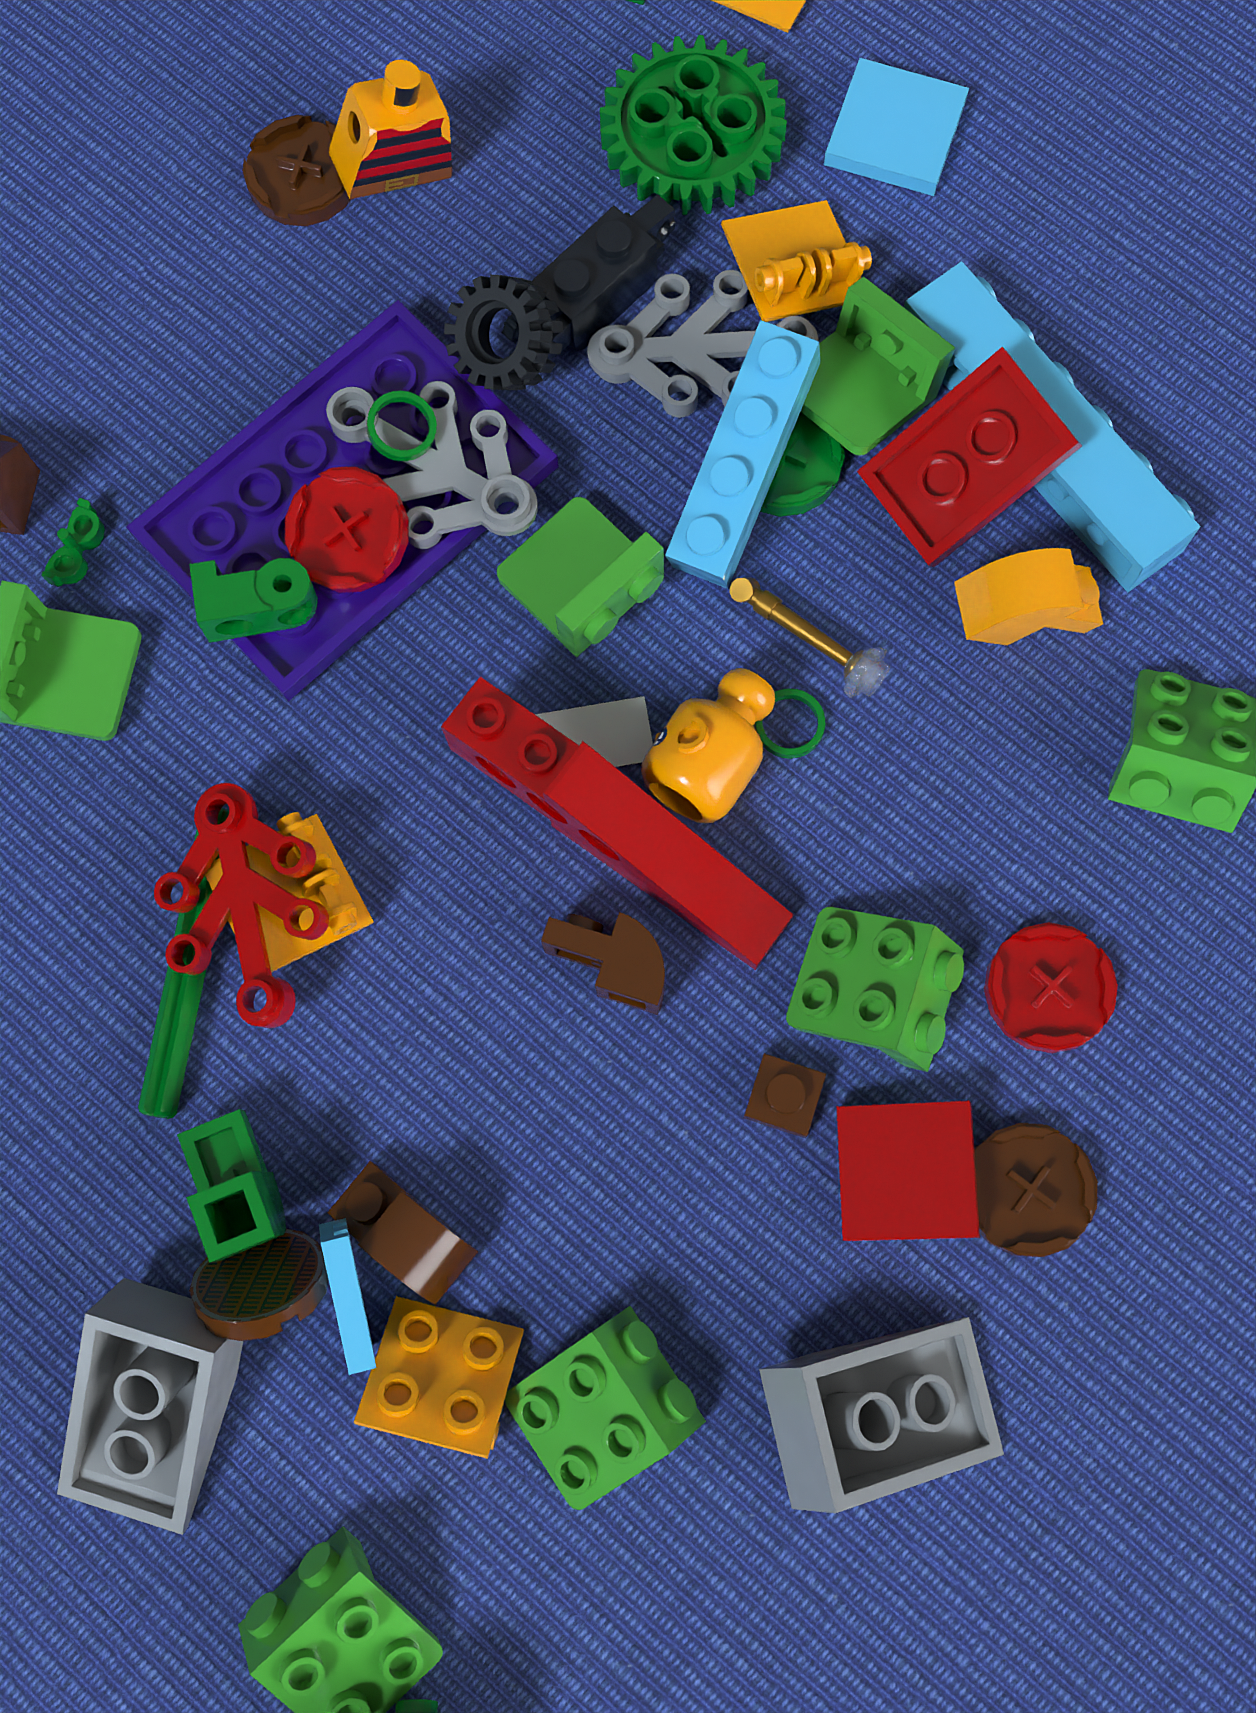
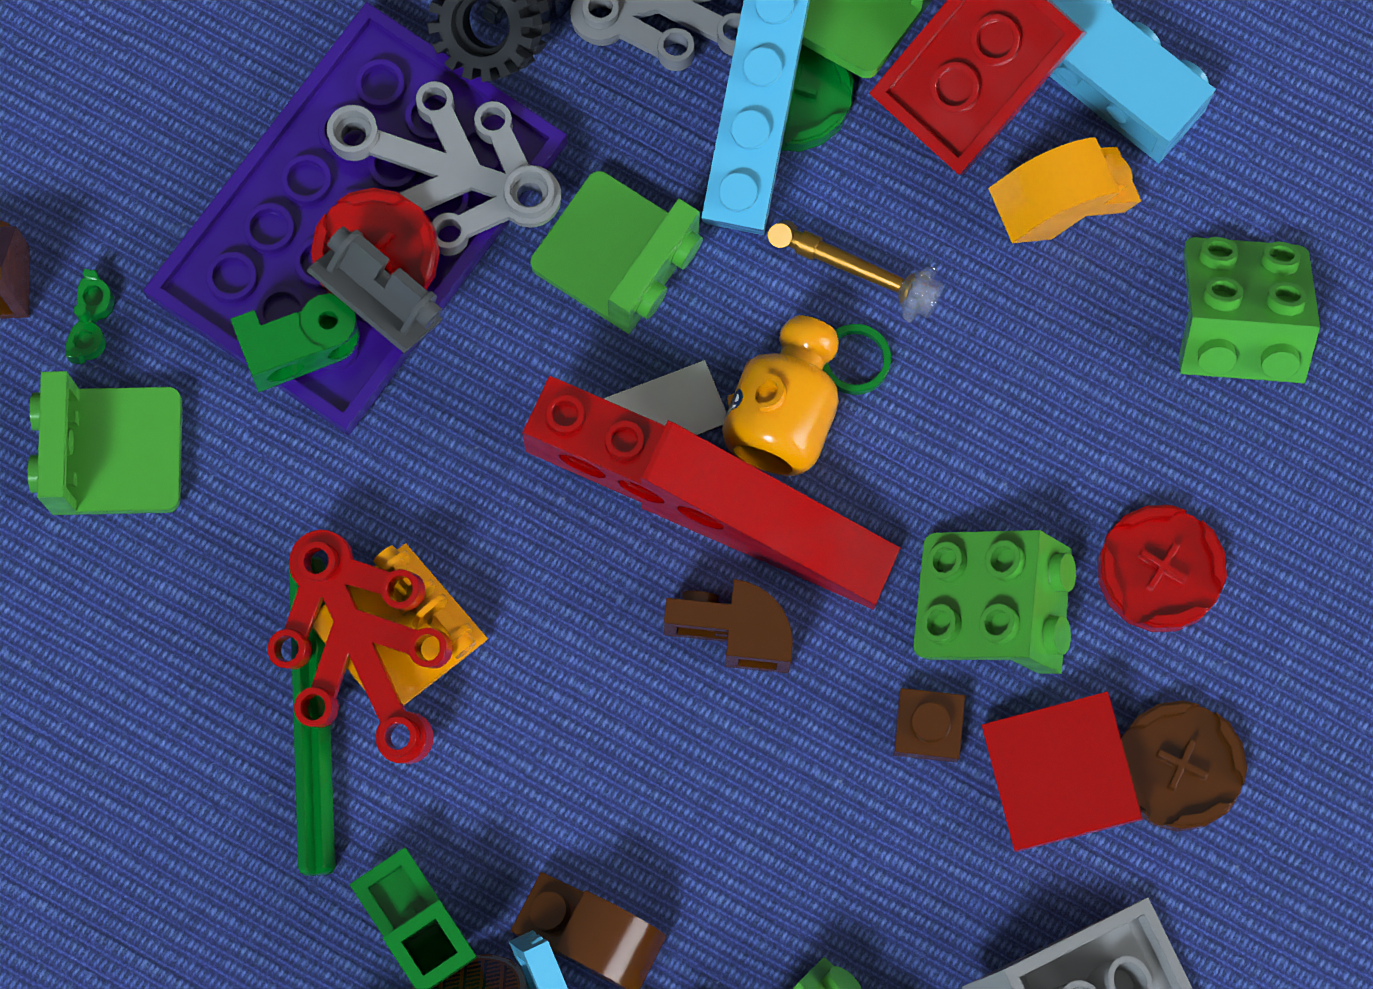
camera: 20 degrees left, 0 degrees up
(335, 570) = (388, 302): none -> dark grey hinge
(410, 398) = (425, 112): green piece -> none

